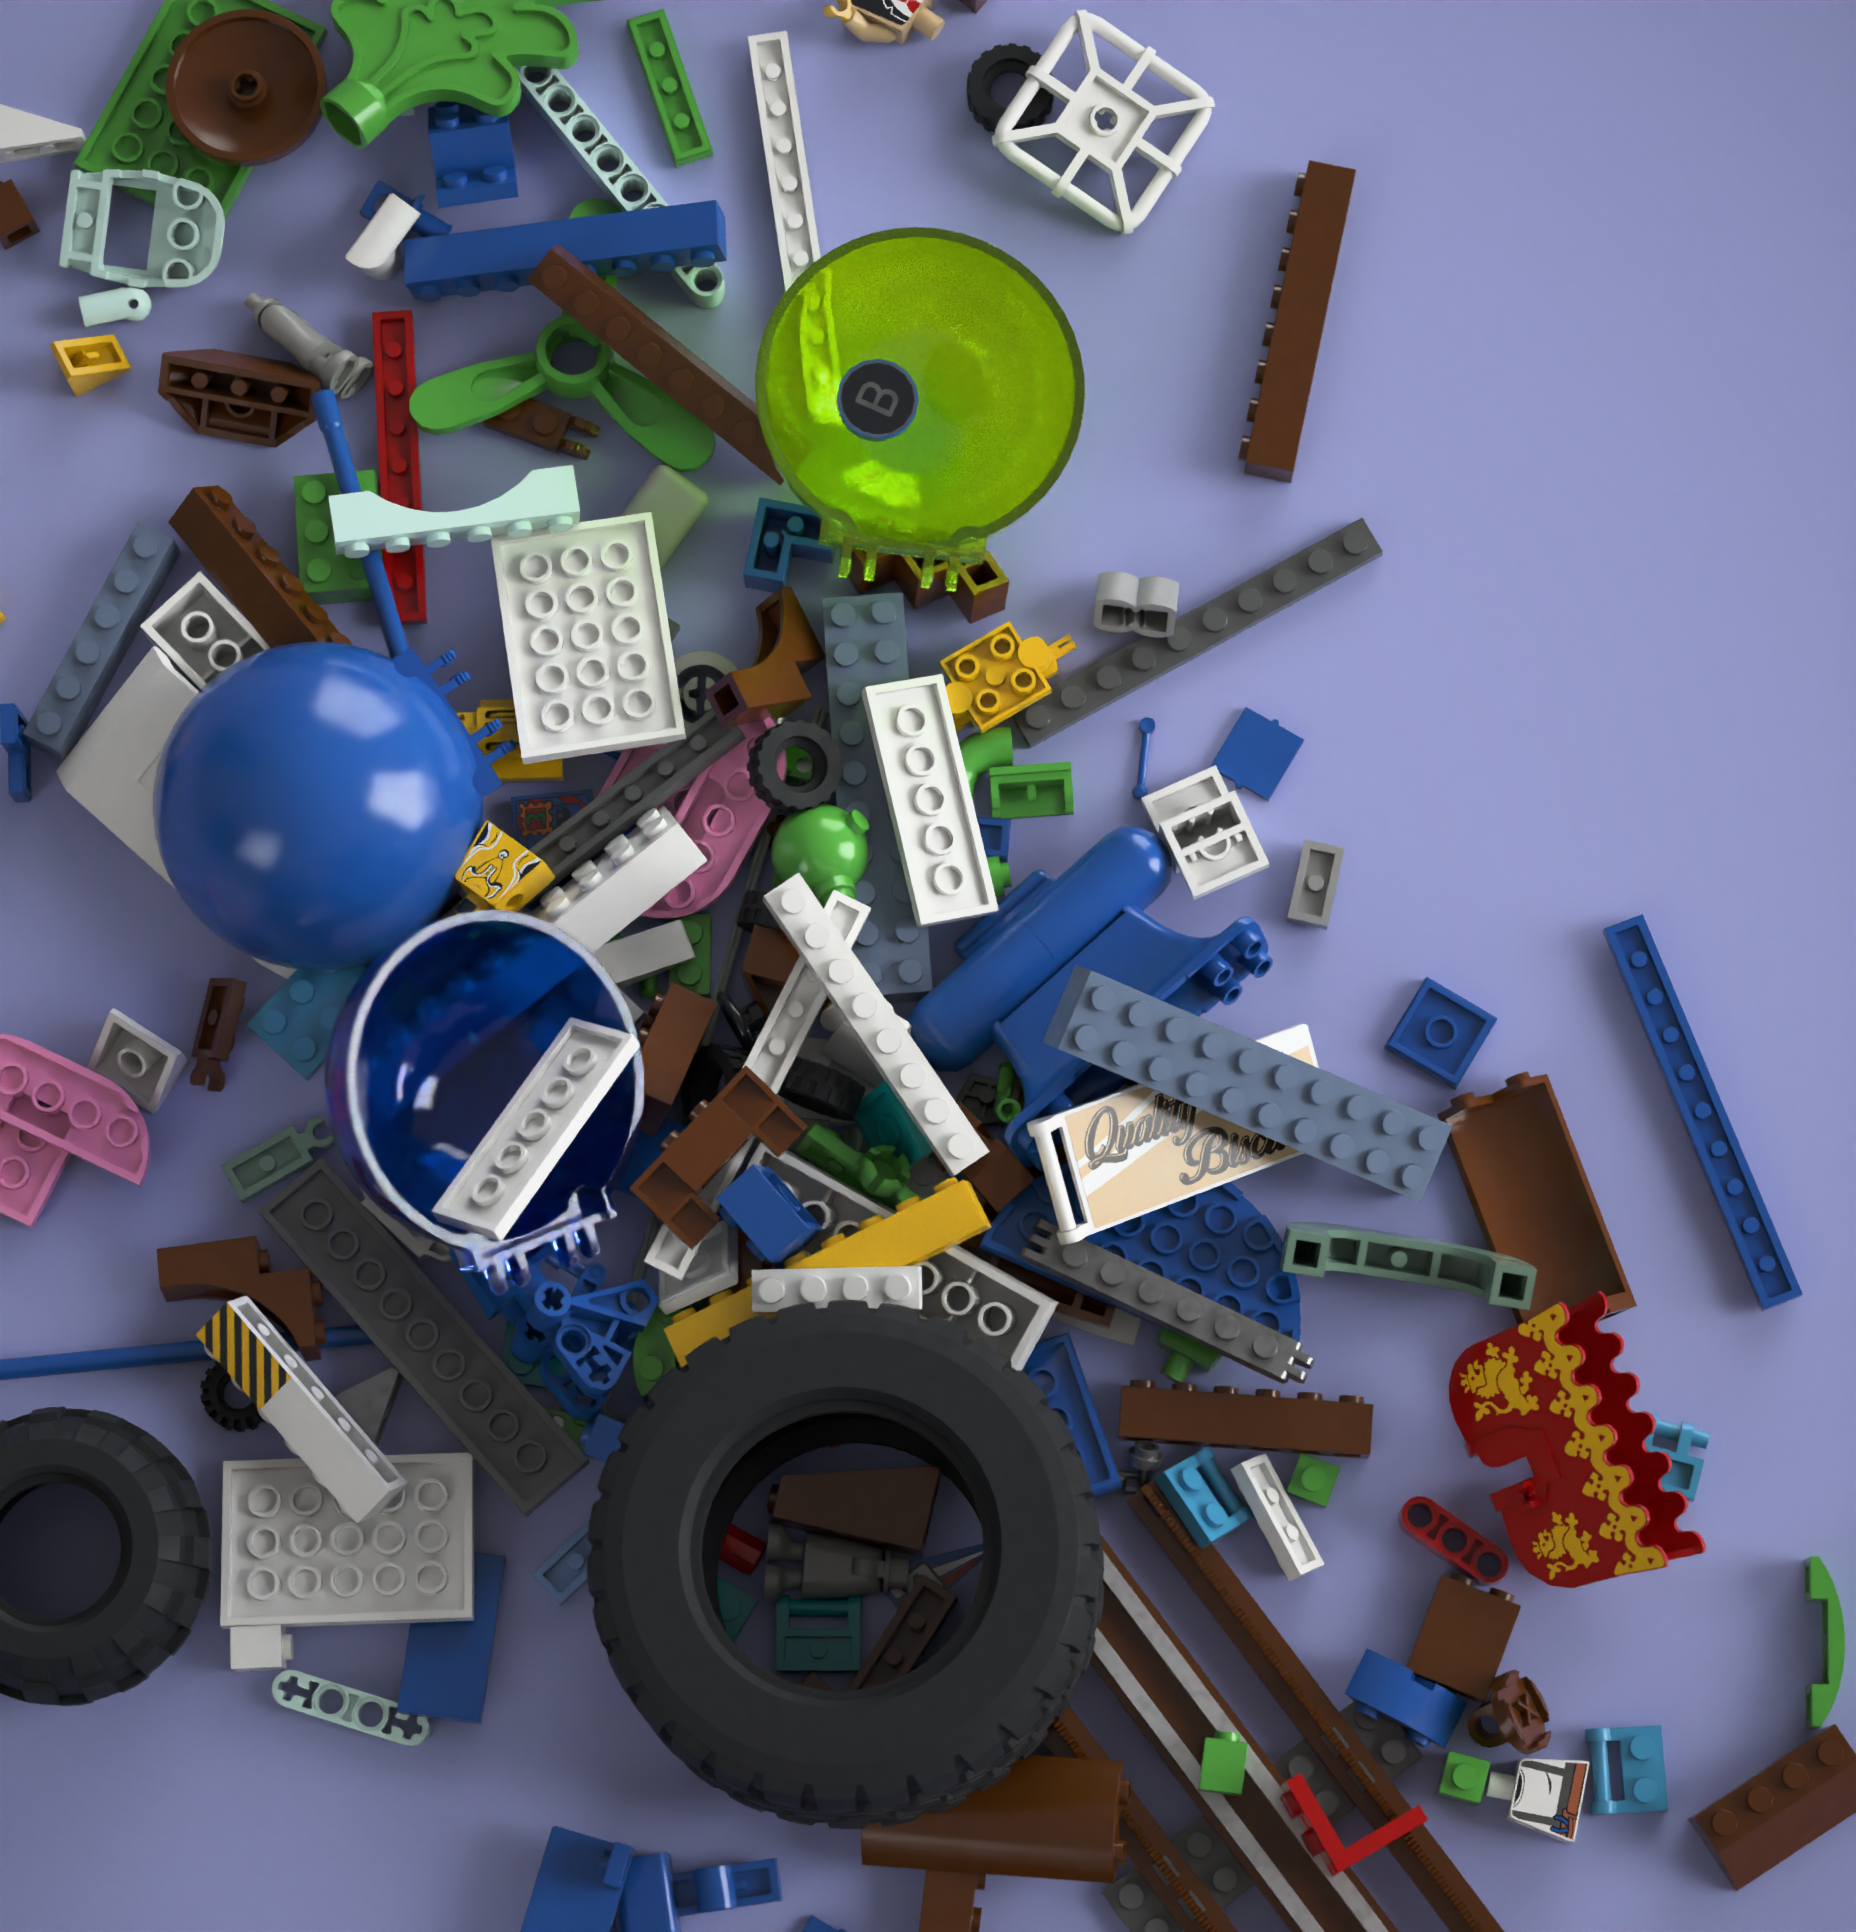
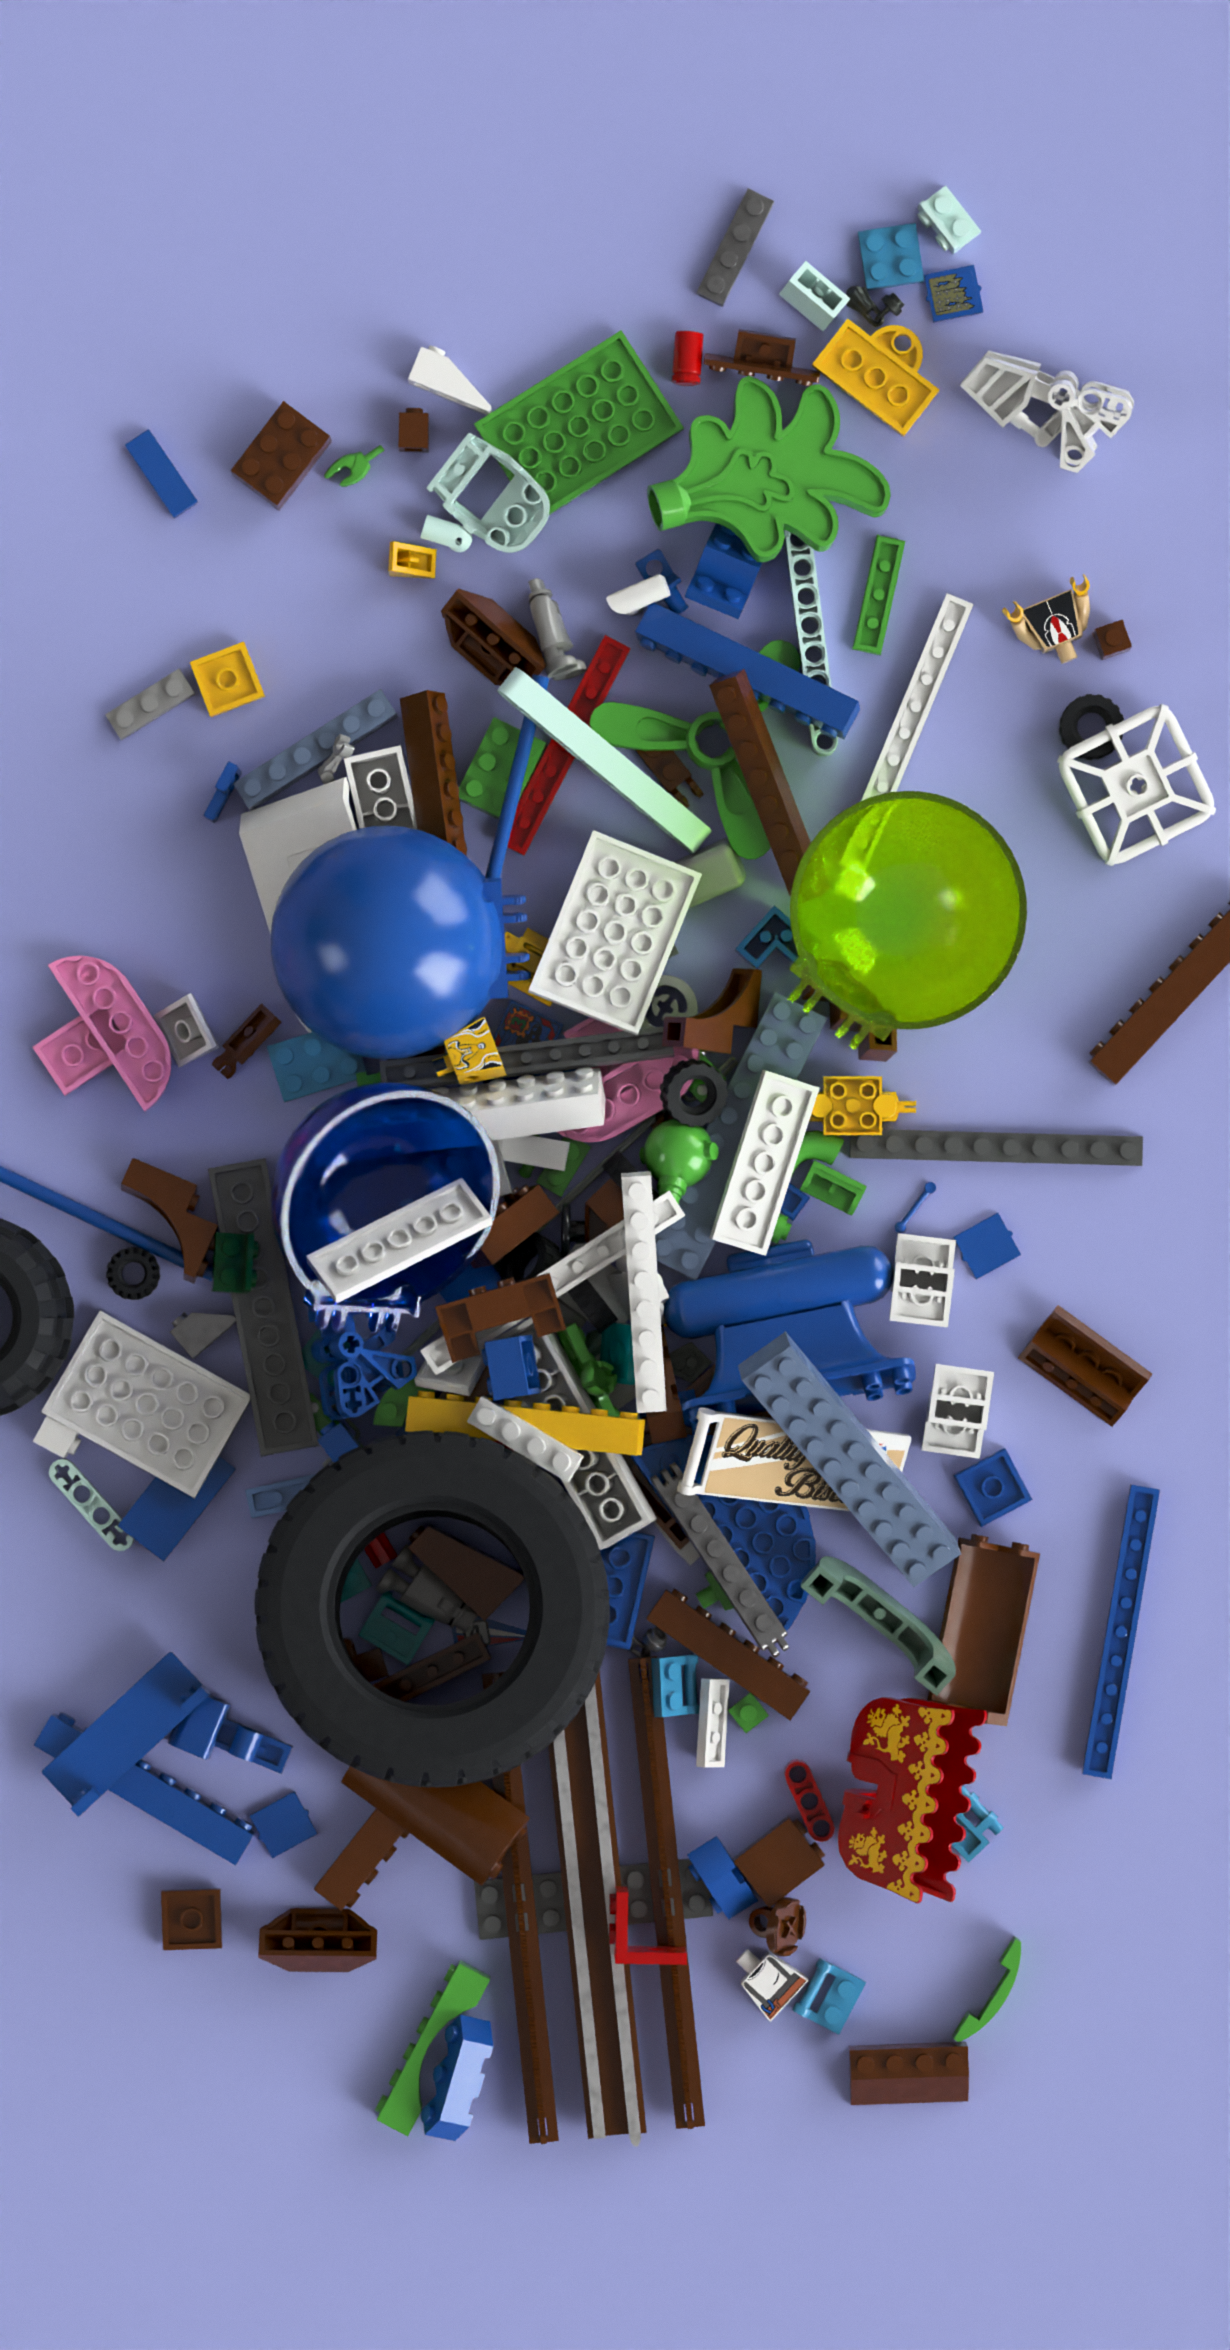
camera: 30 degrees right, 10 degrees up
(130, 615) = (341, 750): none -> light grey piece
(246, 87) = (609, 443): reddish brown dish -> none
(274, 1159) = (235, 1142): sand green plate -> none
(301, 1409) = (163, 1311): white brick -> none
(354, 1300) = (234, 1263): none -> dark green bracket
(371, 523) = (521, 782): light aqua arch -> none
(447, 444) = (604, 760): none -> light aqua beam
(877, 400) = (879, 897): black tile -> none
(1004, 1105) = (696, 1377): bright green piece -> none
(1136, 604) = (968, 1109): light grey brick -> none
(1223, 1764) = (588, 1854): bright green brick -> none
(1315, 884) = (973, 1347): light grey plate -> none
(1342, 961) = (957, 1411): none -> white bracket
(1461, 822) = (1085, 1365): none -> reddish brown slope
(1462, 1778) = (728, 1943): bright green brick -> none

